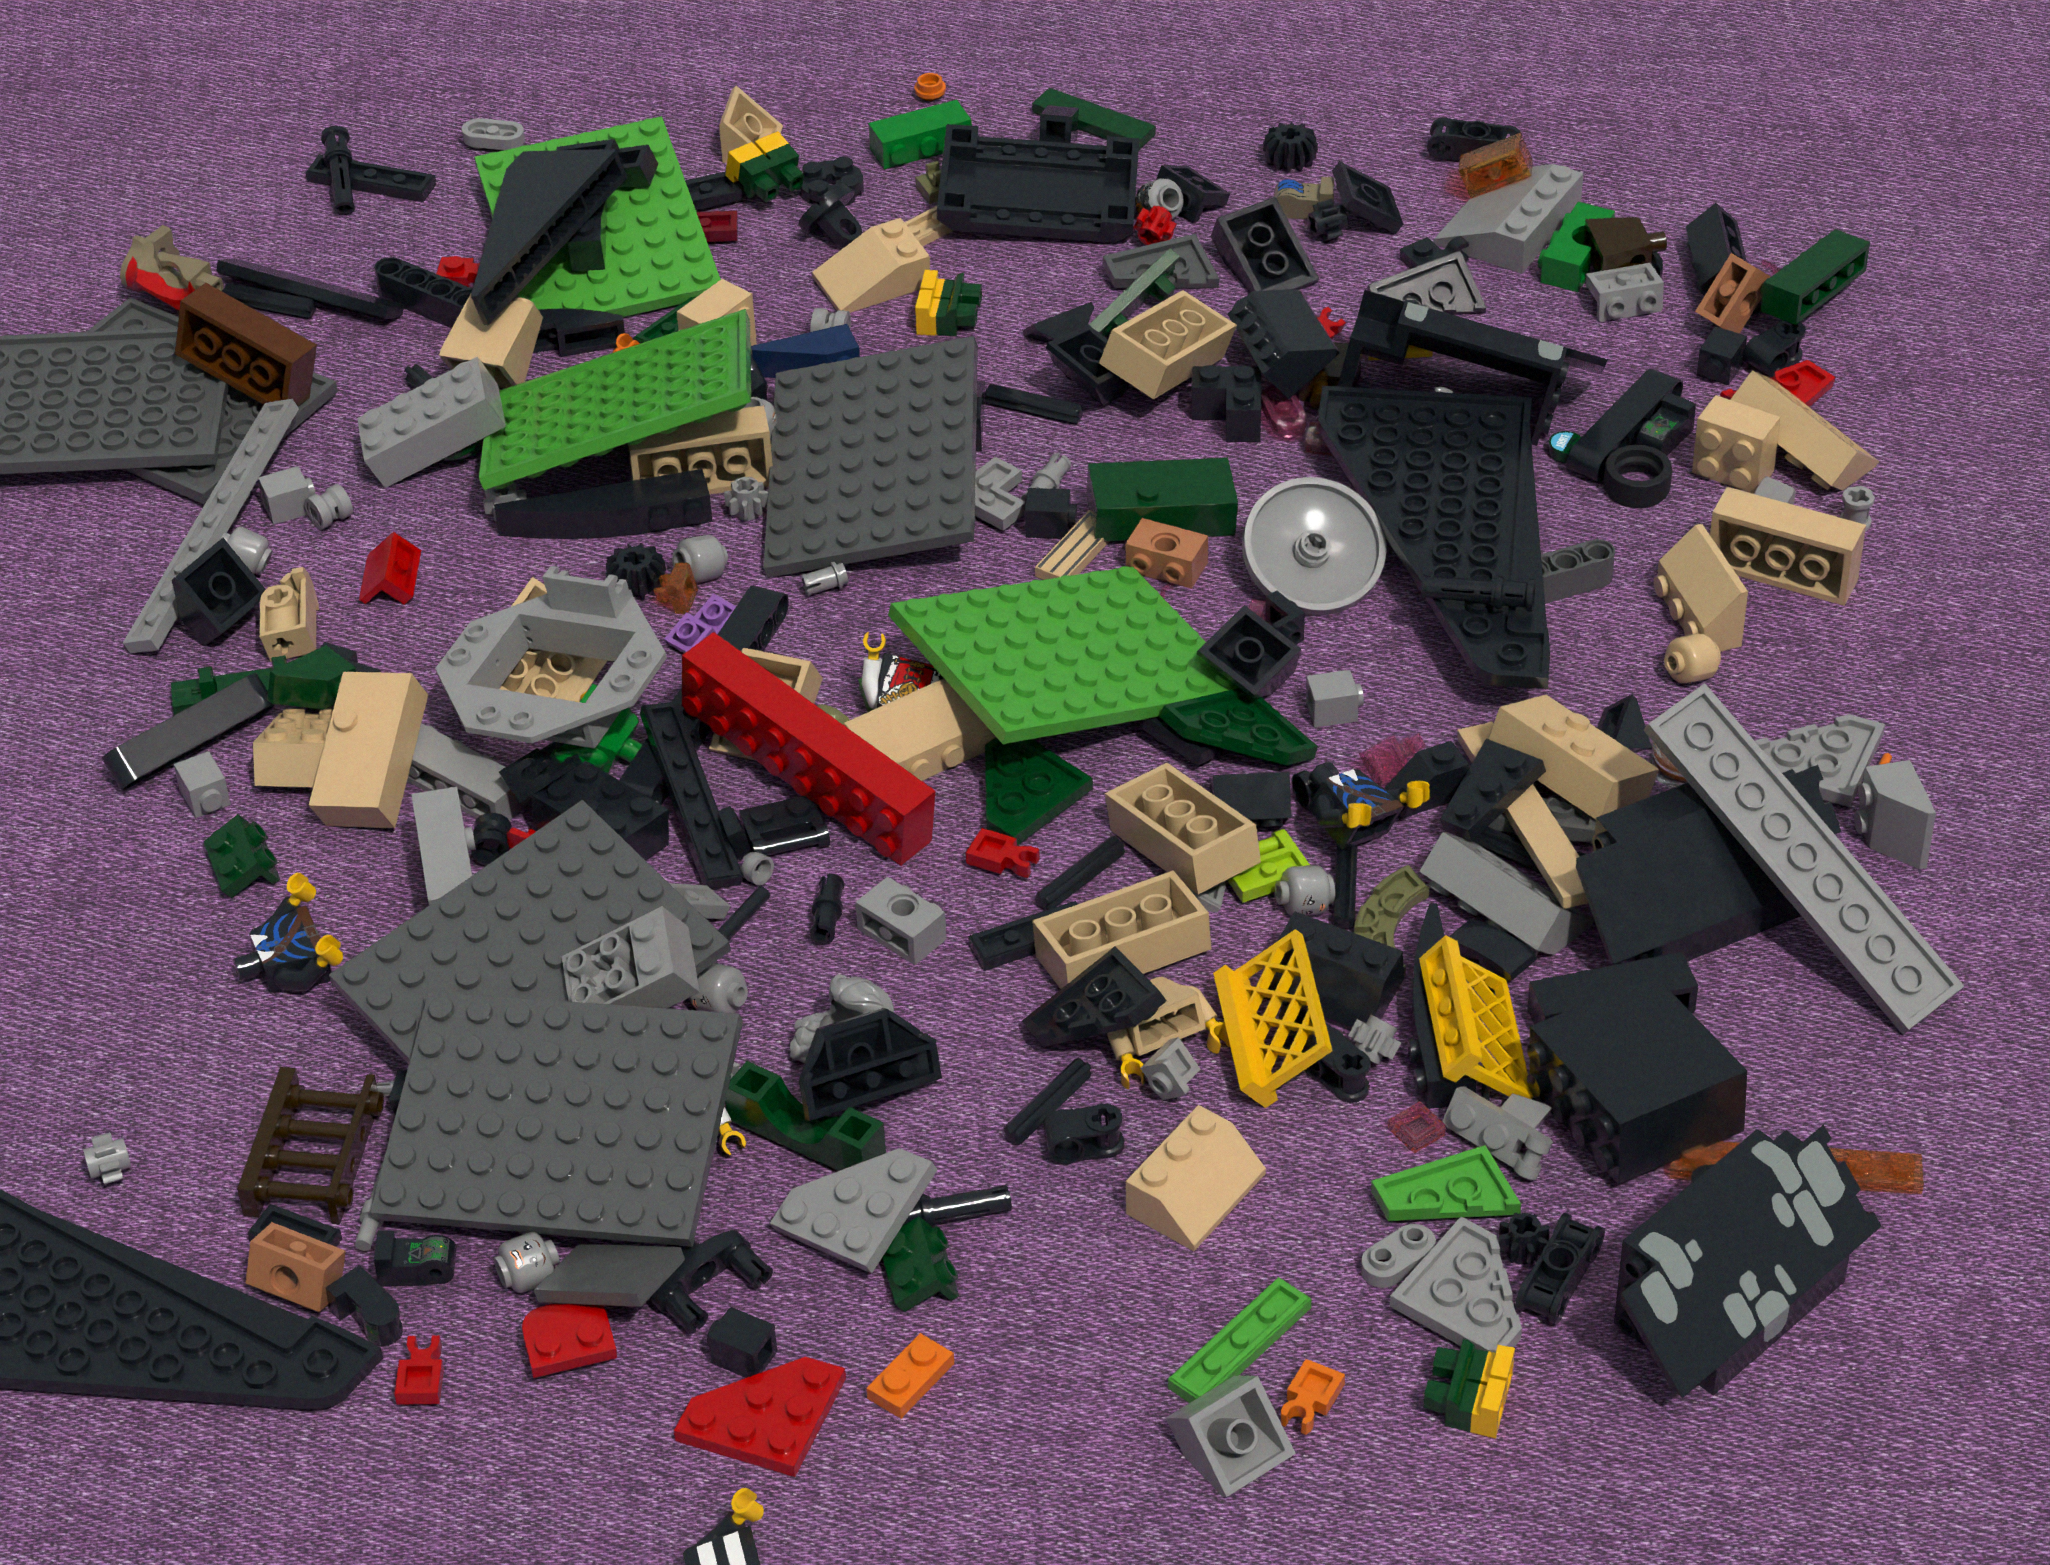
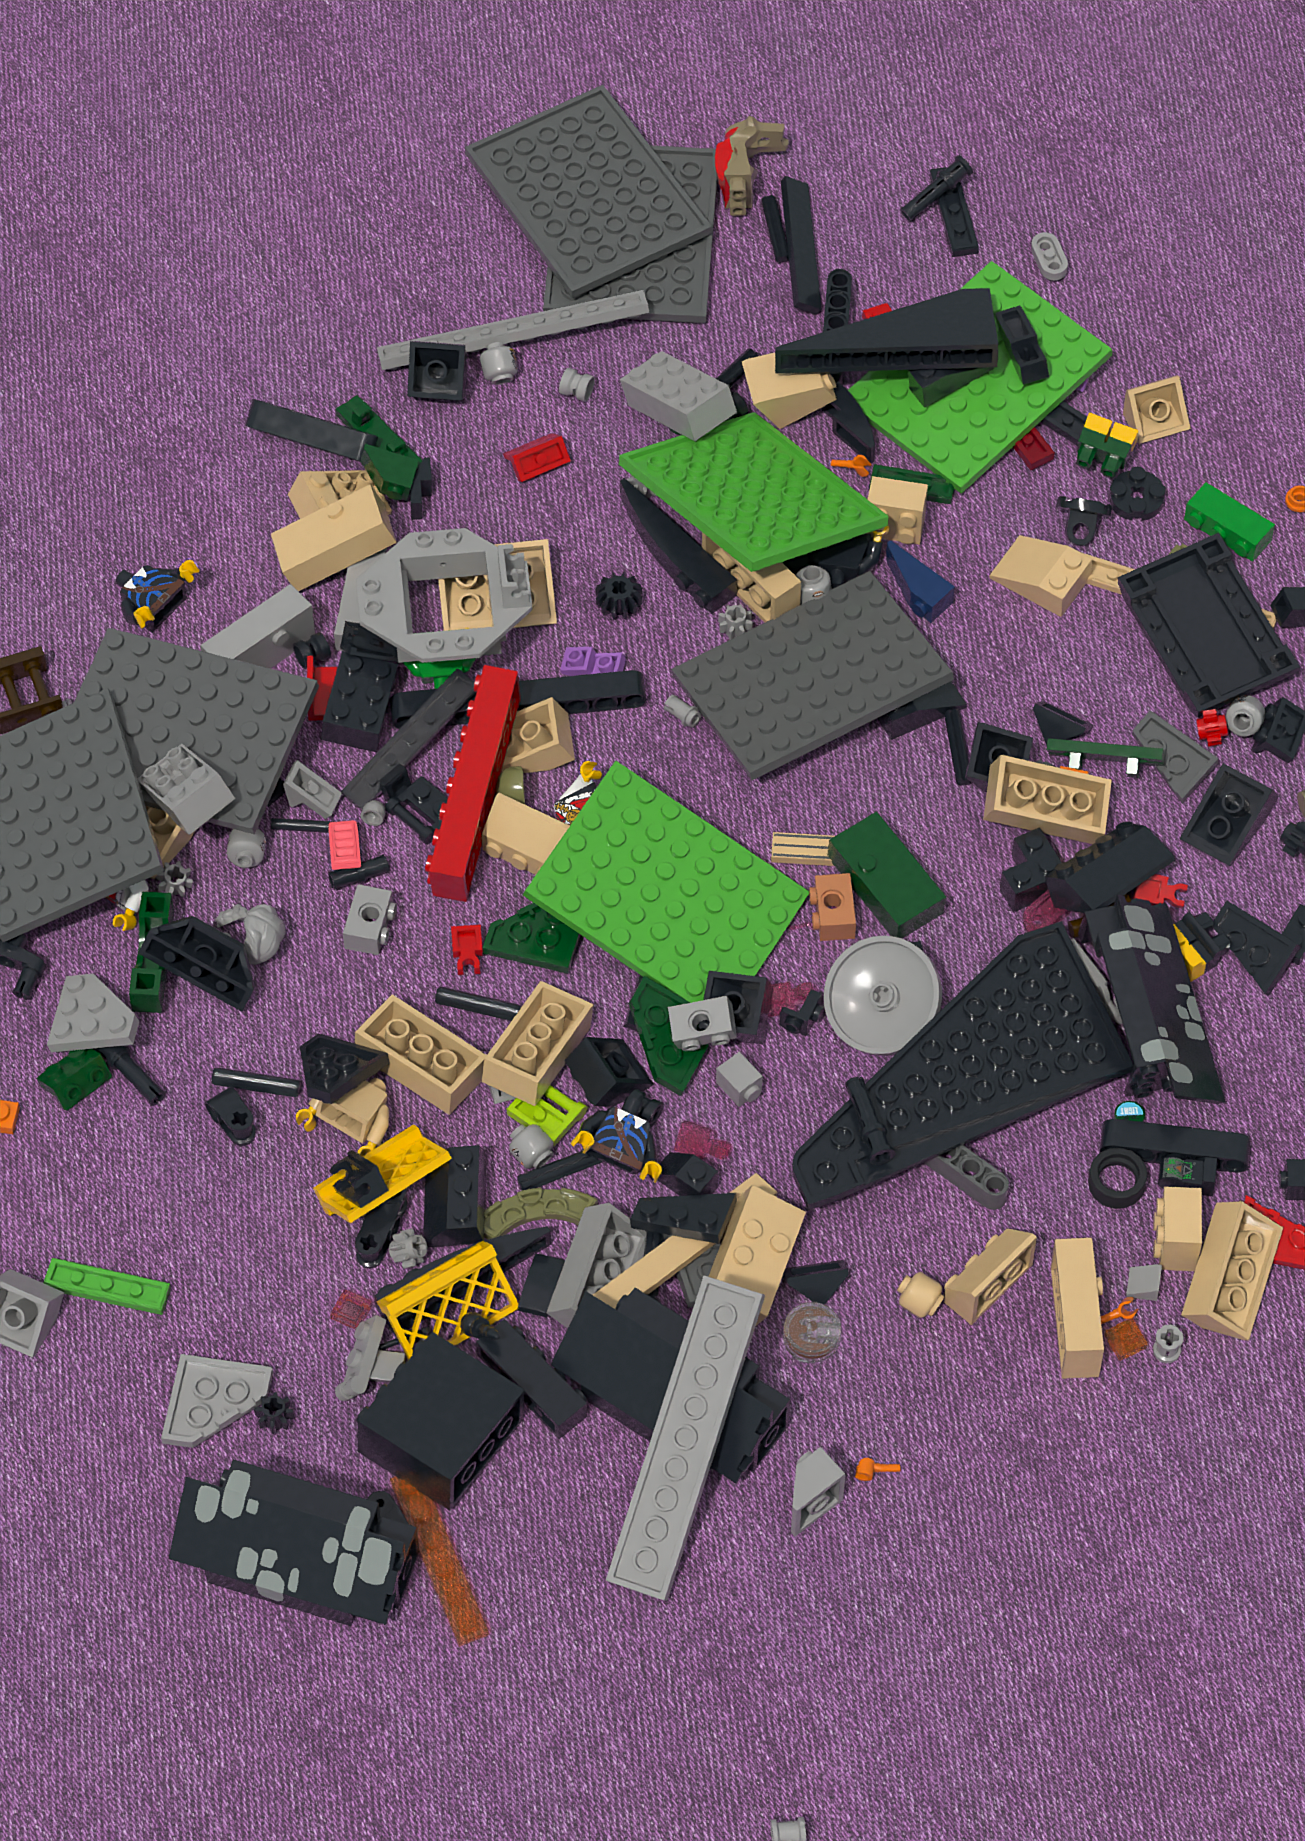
camera: 60 degrees right, 15 degrees up
(202, 784) = (271, 465): light grey brick -> none
(240, 855) = (223, 524): dark green bracket -> none
(244, 347) = (668, 248): reddish brown brick -> none
(285, 494) = (573, 352): light grey brick -> none
(289, 616) = (453, 423): tan piece -> none
(678, 588) = (617, 630): clear orange tile -> none
(704, 555) = (654, 626): light grey head -> none
(785, 901) = (344, 845): none -> coral slope
(823, 319) = (958, 574): light grey wheel -> none
(946, 304) = (1030, 635): dark green hips -> none
(992, 496) = (835, 761): light grey plate -> none
(1008, 941) = (382, 985): black tile -> none
(1049, 513) = (832, 812): black brick -> none
(1051, 474) = (872, 796): light grey pin -> none
(1170, 1070) = (314, 1139): light grey bracket -> none
(1193, 1179) = (225, 1196): tan slope -> none
(1268, 660) = (687, 1016): none -> light grey brick
(1277, 1023) = (362, 1179): none -> black hinge
(1311, 1391) = (82, 1344): orange plate -> none
(1403, 1252) = (226, 1346): light grey plate -> none
(1447, 1188) = (298, 1350): bright green wing -> none
(1477, 1387) = (118, 1429): hips -> none
(1518, 1013) = (476, 1326): none -> black bar
(1560, 1268) = (279, 1446): black piece -> none
(1838, 749) = (863, 1421): light grey plate -> none

